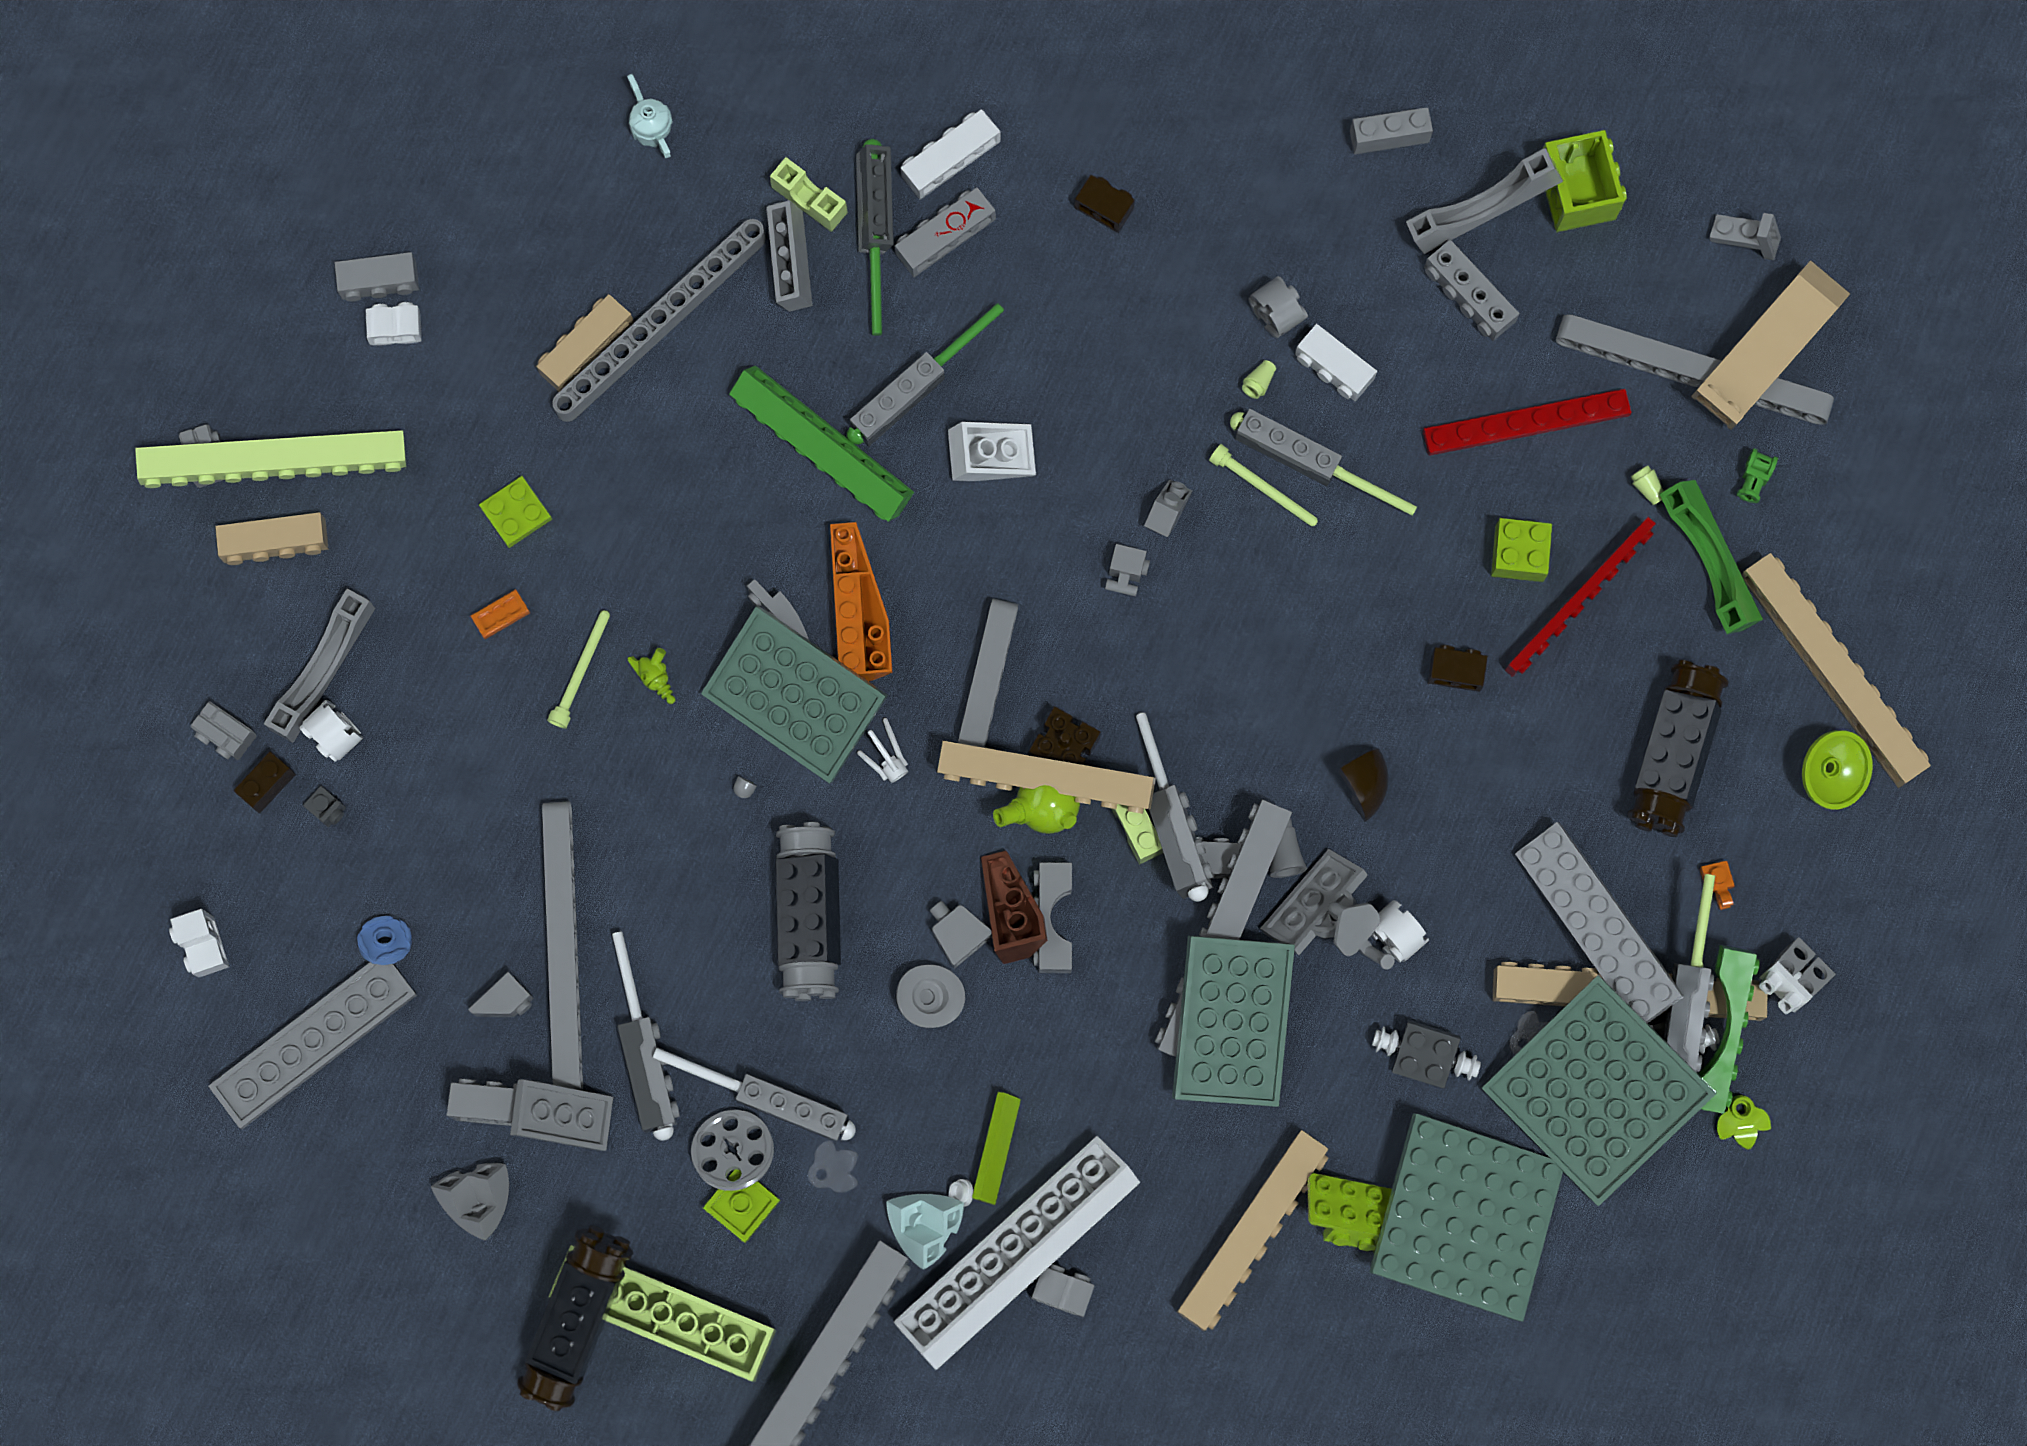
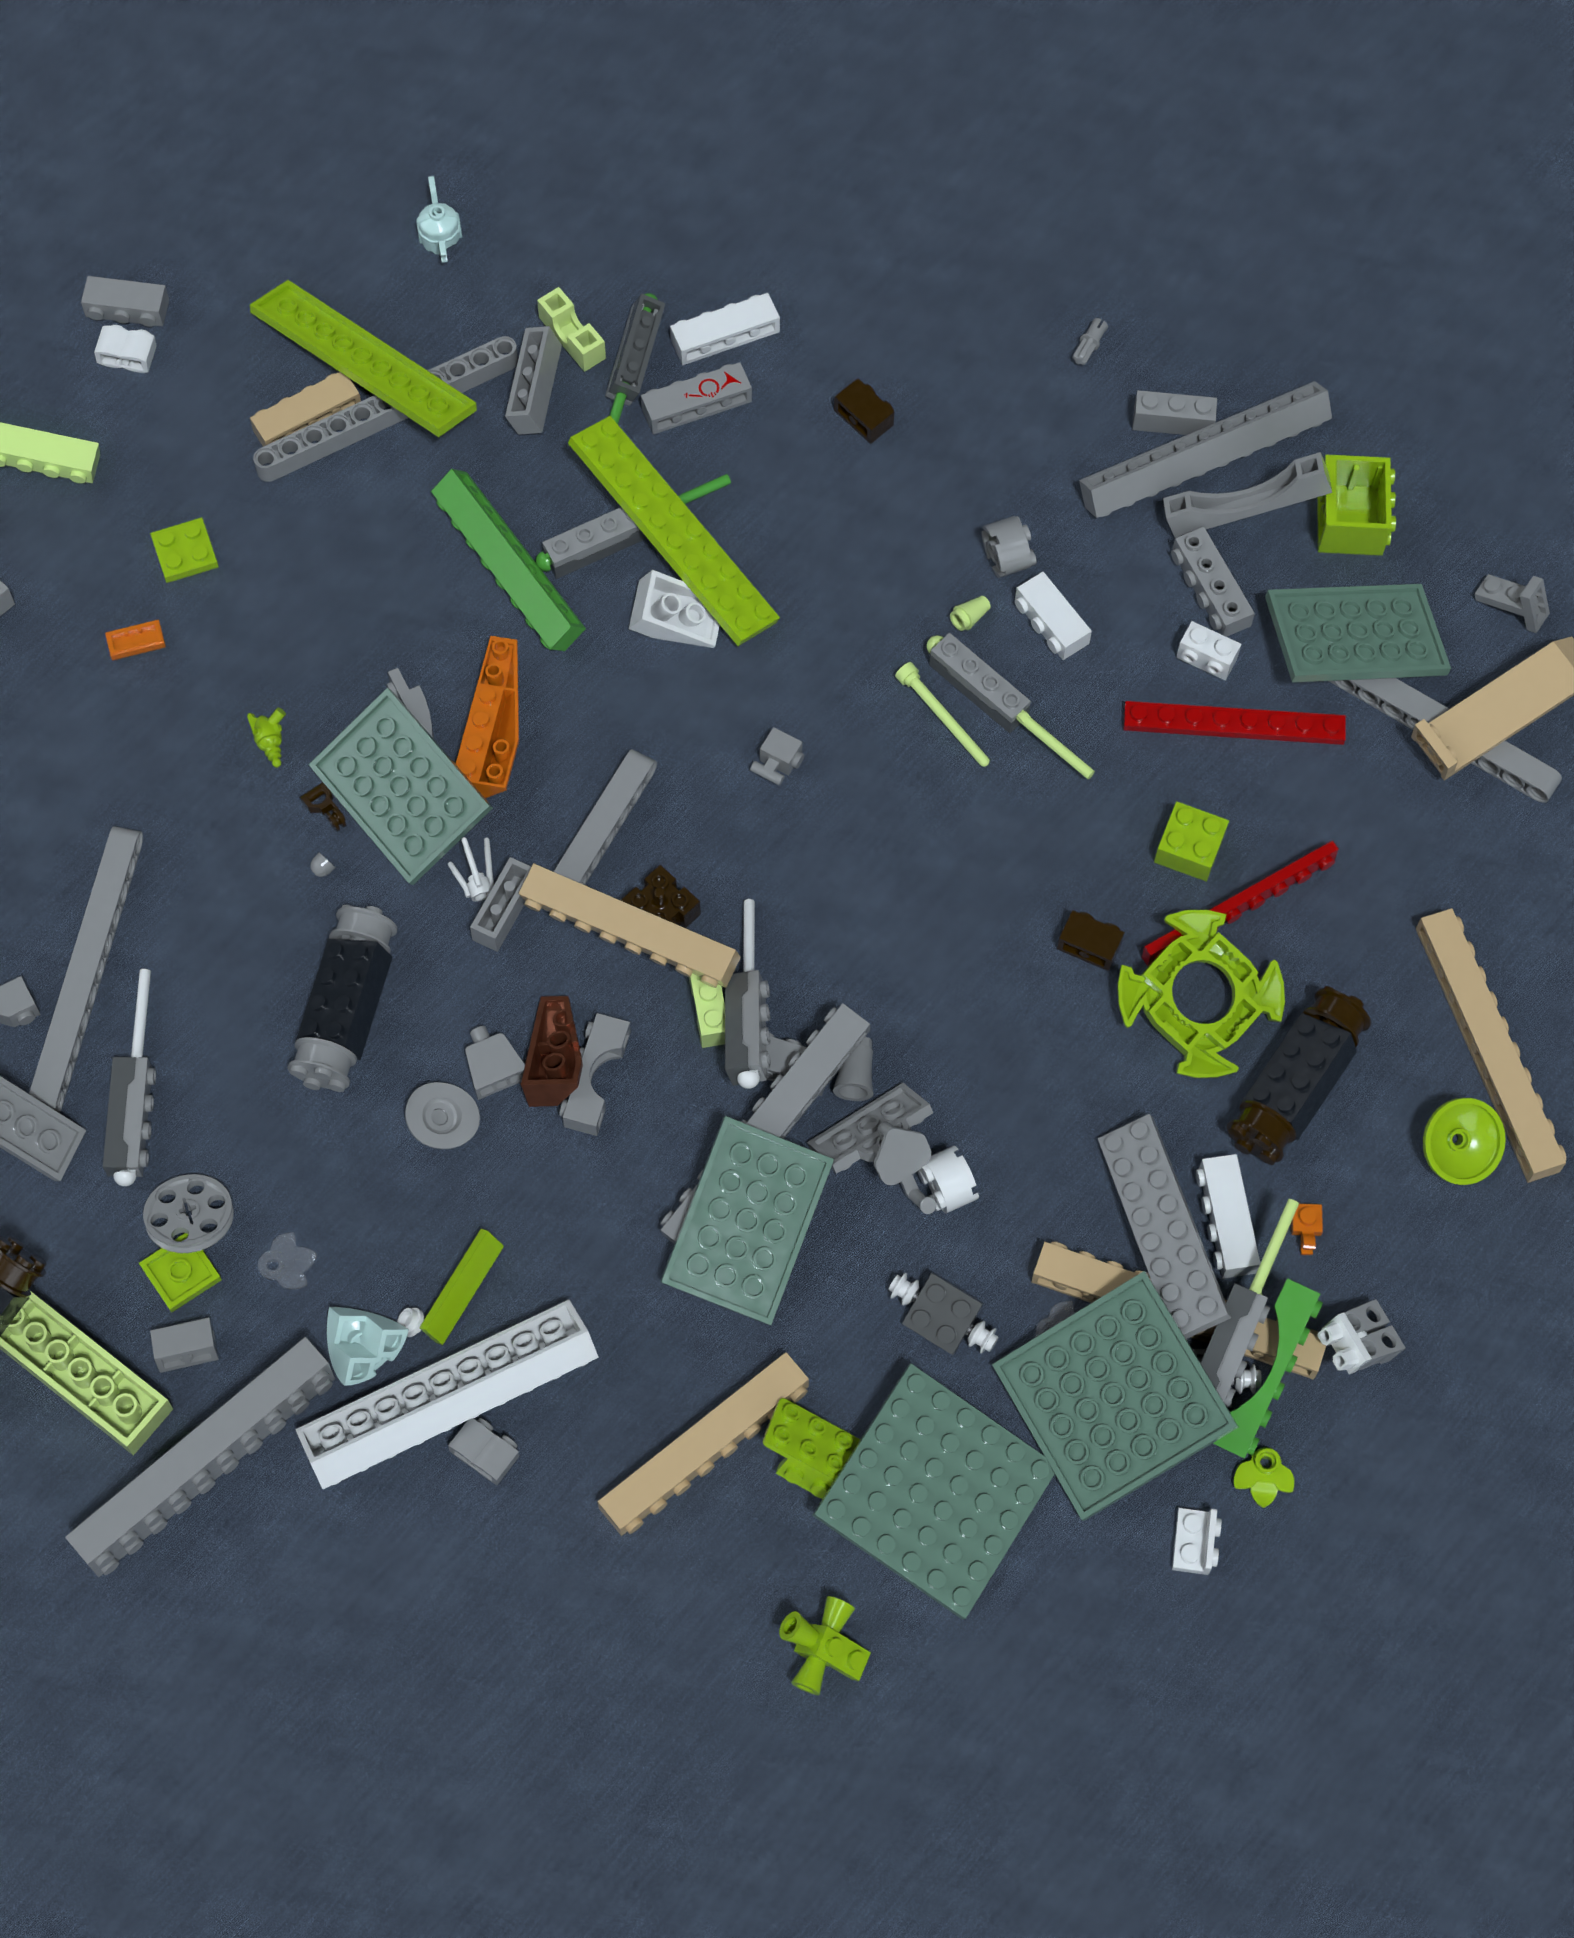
camera: 15 degrees right, 10 degrees down
(560, 715) = (161, 750): yellowish green piece -> none
(624, 278) = (363, 358): none -> lime plate
(743, 737) = (325, 807): none -> dark brown piece
(767, 1270) = (184, 1345): none -> light grey hinge
(772, 1100) = (247, 1176): light grey piece -> none
(922, 782) = (500, 906): none -> light grey brick
(967, 374) = (674, 530): none -> lime plate
(1040, 810) = (613, 958): lime piece -> none
(1168, 507) = (838, 709): light grey slope -> none
(1292, 77) = (1089, 341): none -> light grey axle
(1367, 781) = (964, 1023): dark brown brick -> none
(1410, 1382) = (824, 1646): none -> lime brick
(1430, 160) = (1205, 449): none -> light grey brick
(1486, 360) = (1208, 650): none -> white brick
(1529, 704) = (1154, 993): none -> lime piece
(1617, 308) = (1357, 632): none -> sand green plate
(1648, 484) = (1343, 812): yellowish green cone -> none
(1649, 894) = (1228, 1215): none -> white brick
(1700, 1196) = (1195, 1541): none -> white bracket
(1732, 598) = (1400, 944): bright green arch -> none
(1756, 473) = (1461, 830): bright green connector -> none

